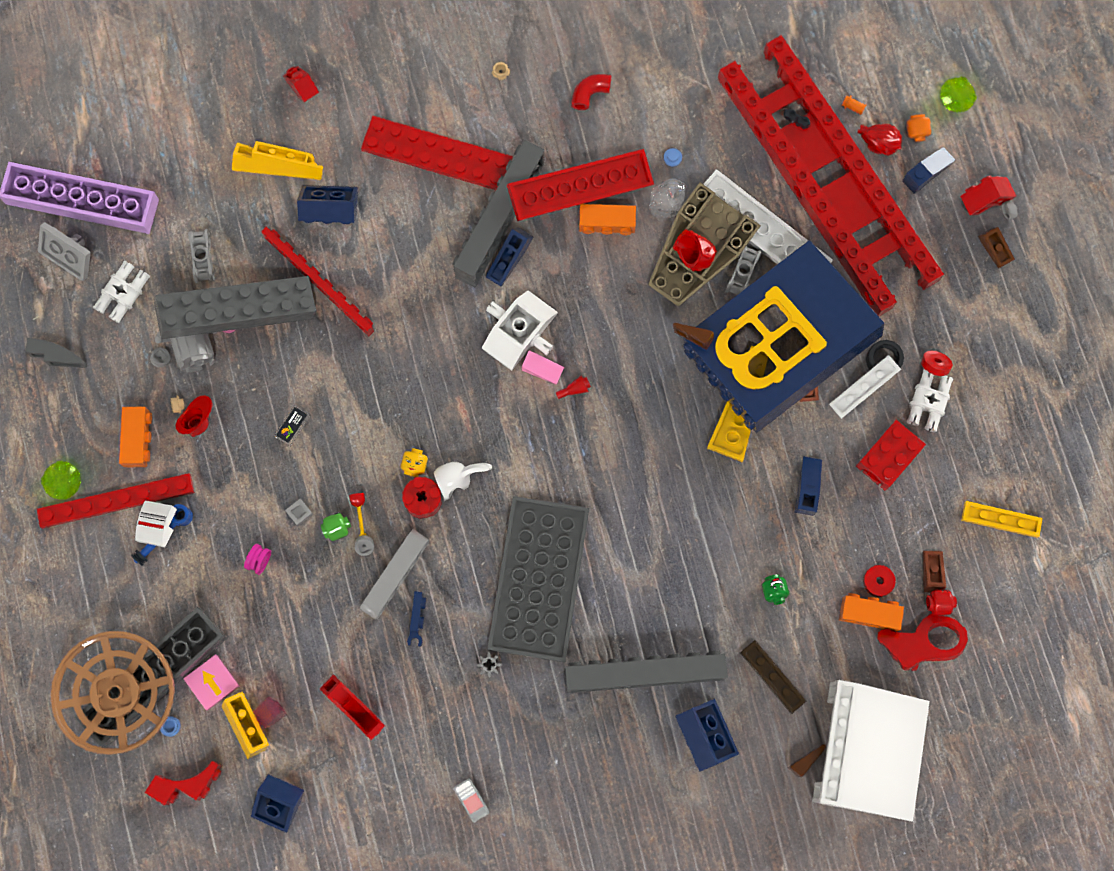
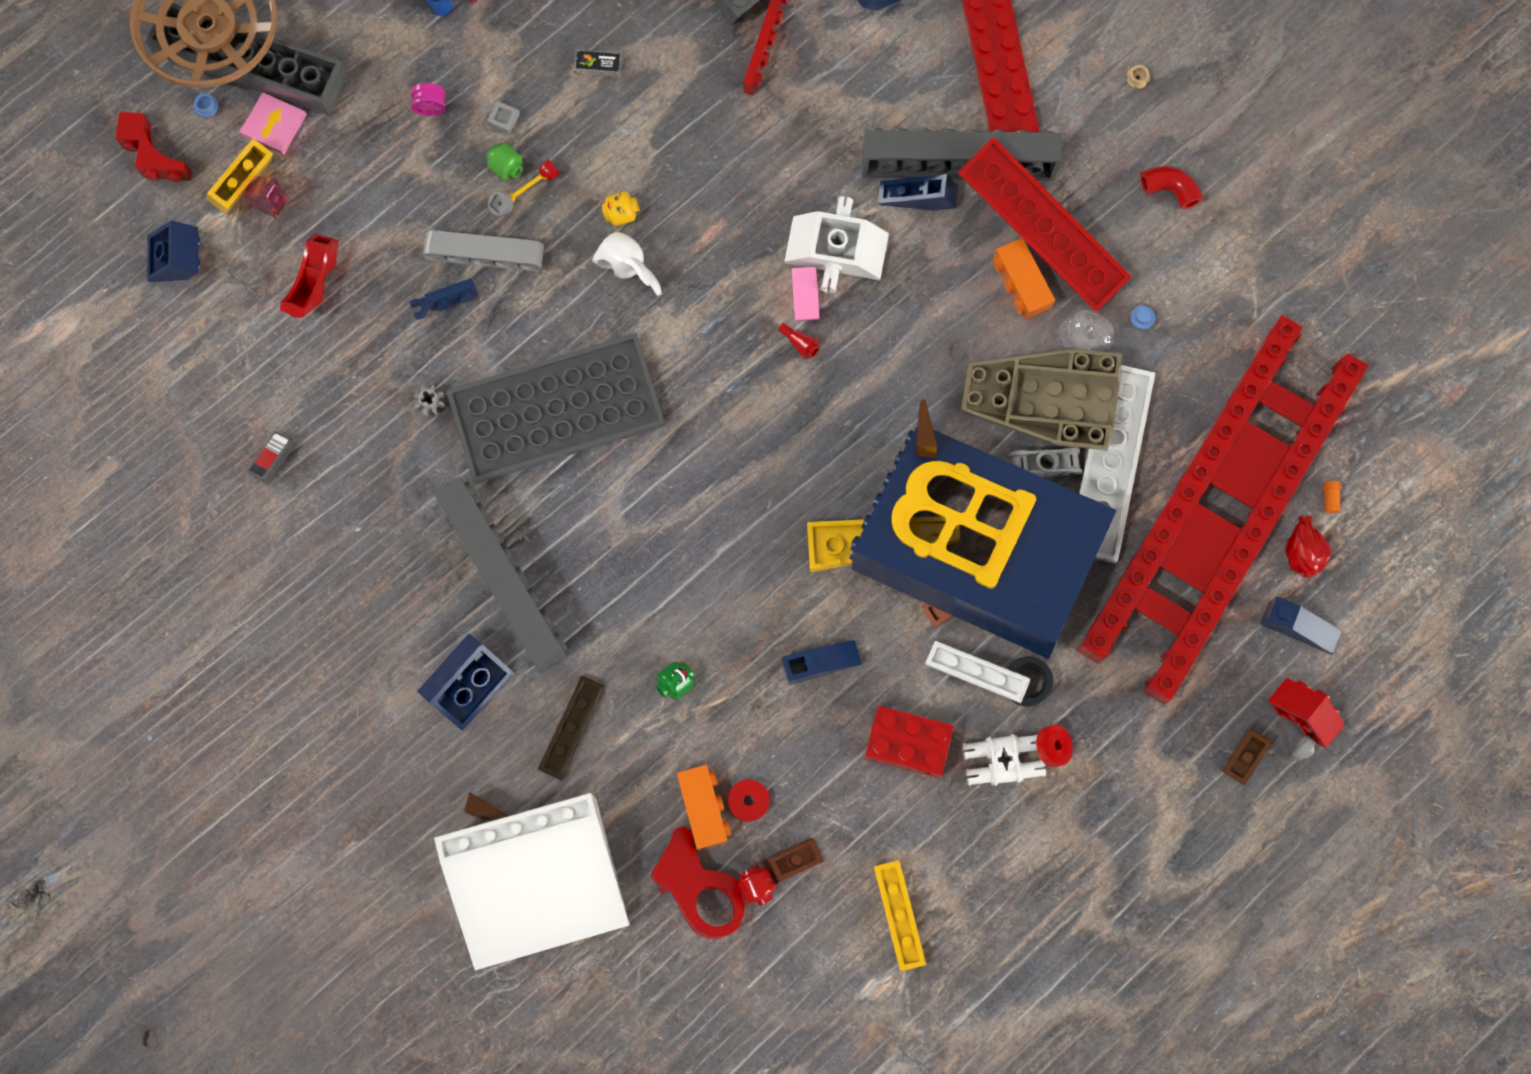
camera: 65 degrees right, 0 degrees up
(418, 487) = (578, 224): red brick -> none
(694, 250) = (1036, 391): red helmet -> none
(793, 117) = (1271, 441): black piece -> none
(918, 127) = (1347, 587): orange head -> none
(957, 94) = (1420, 617): clear neon green dish -> none

